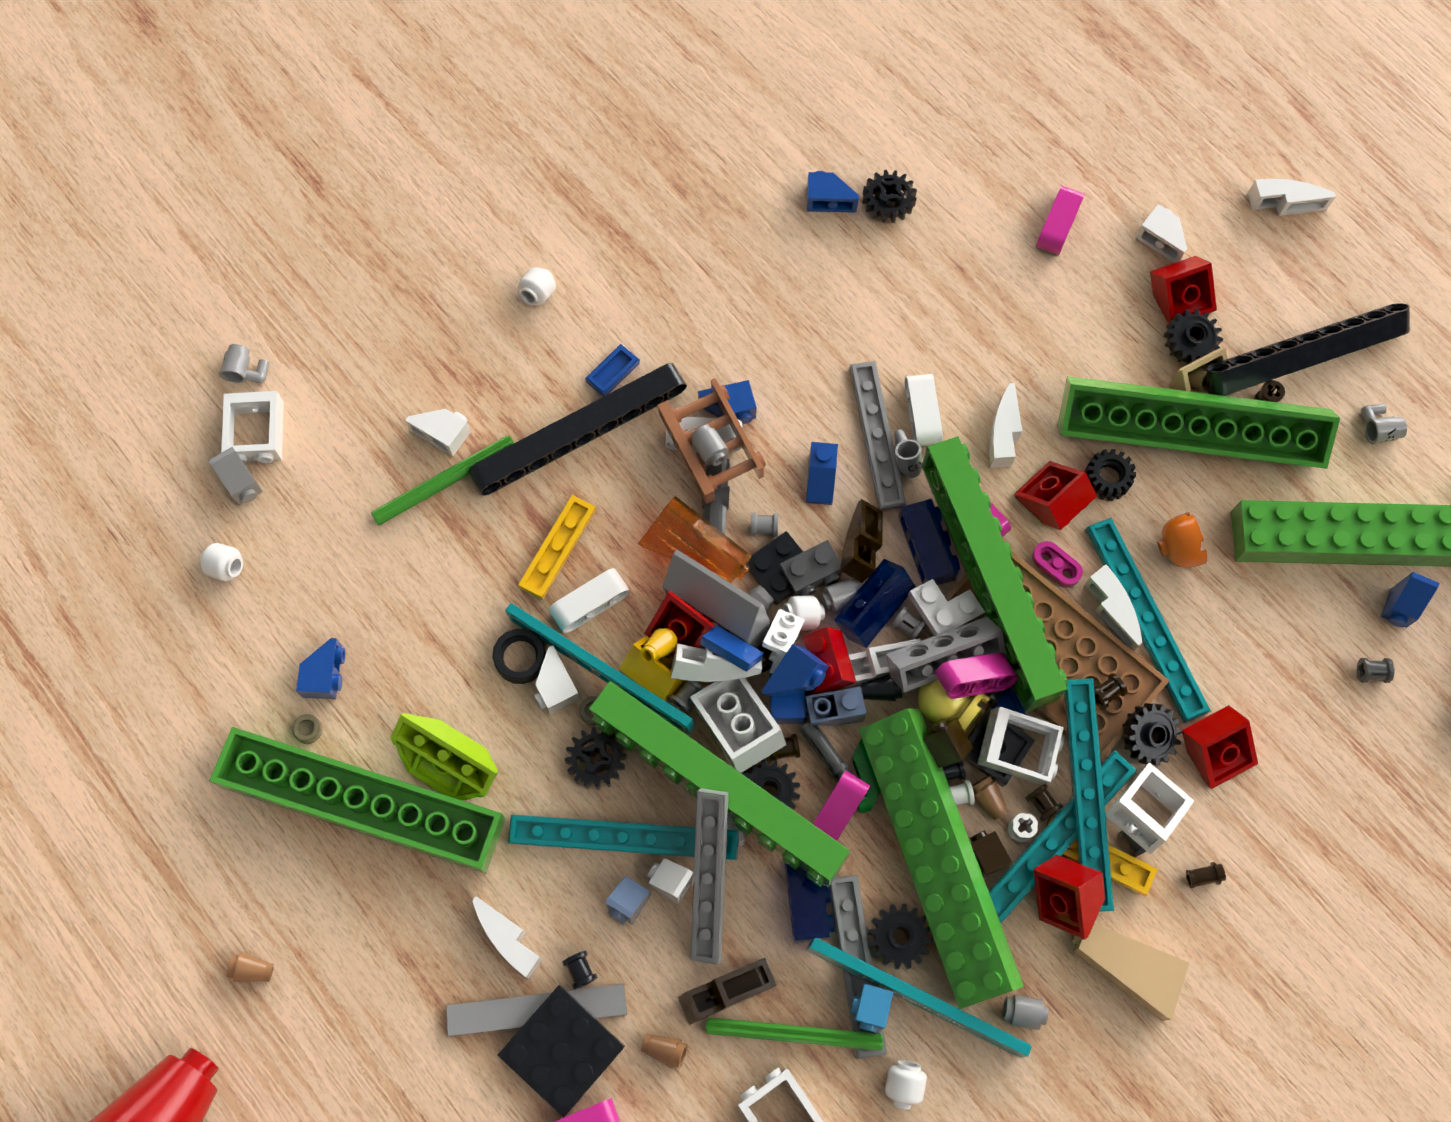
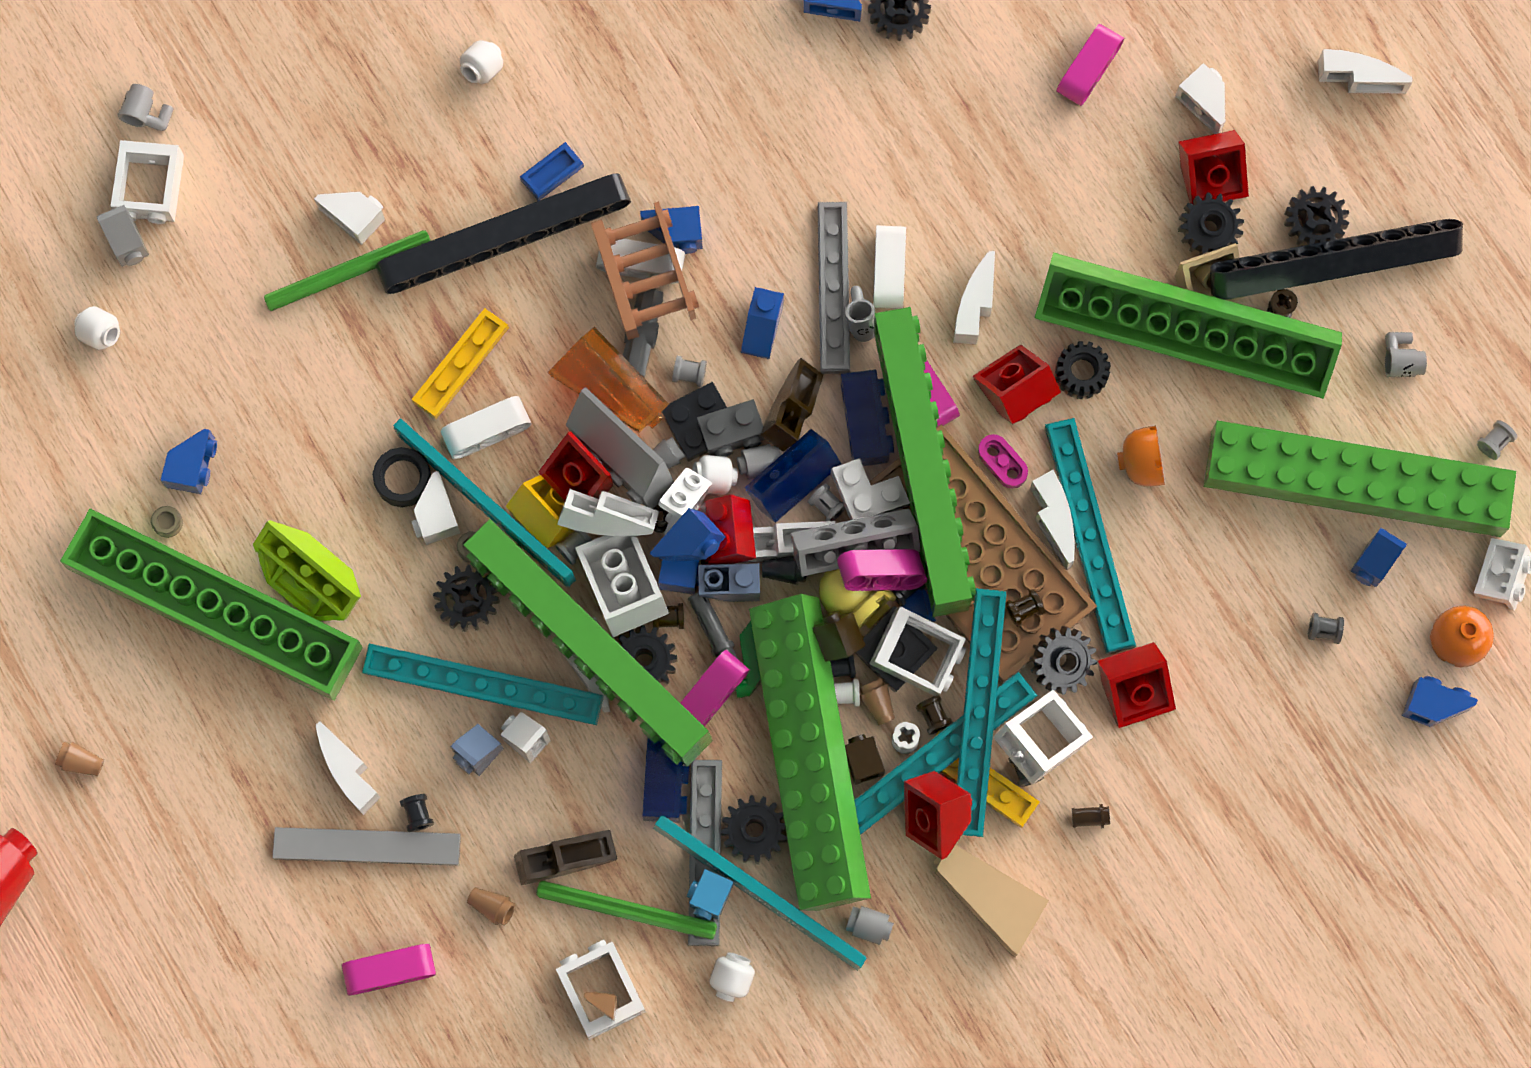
camera: 10 degrees right, 5 degrees up
(561, 1050) = (385, 889): black plate -> none
(659, 645) = (550, 488): yellow cone -> none
(709, 445) = (639, 277): light grey brick -> none
(709, 875) = (562, 736): light grey tile -> none
(731, 648) = (625, 502): blue tile -> none
(1280, 318) = (1327, 225): none -> black gear

